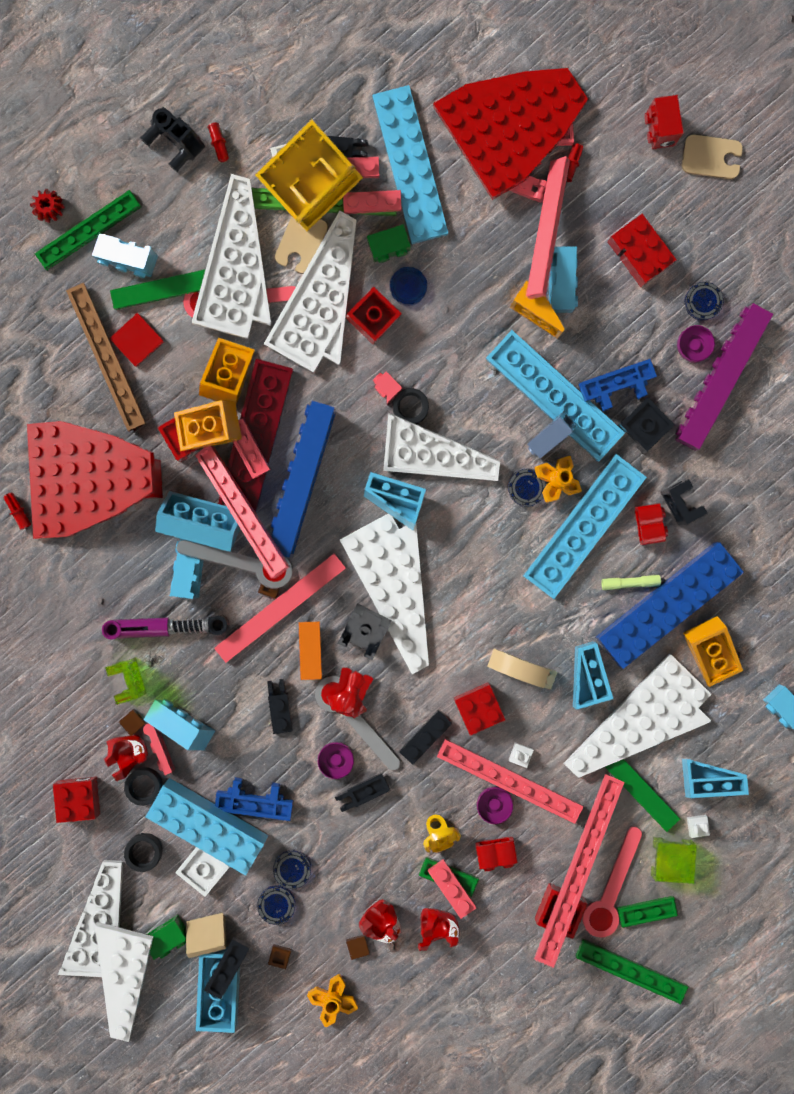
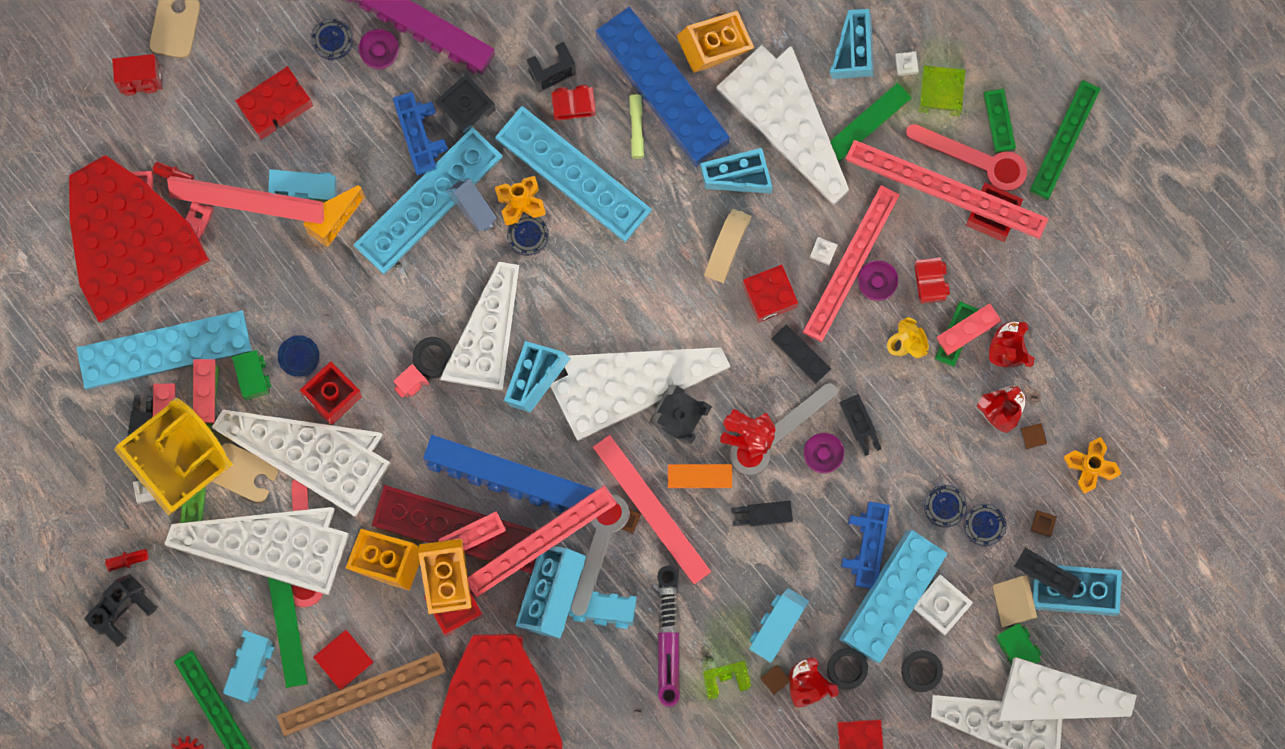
camera: 90 degrees left, 10 degrees down
(159, 747) = (803, 649): coral plate -> none

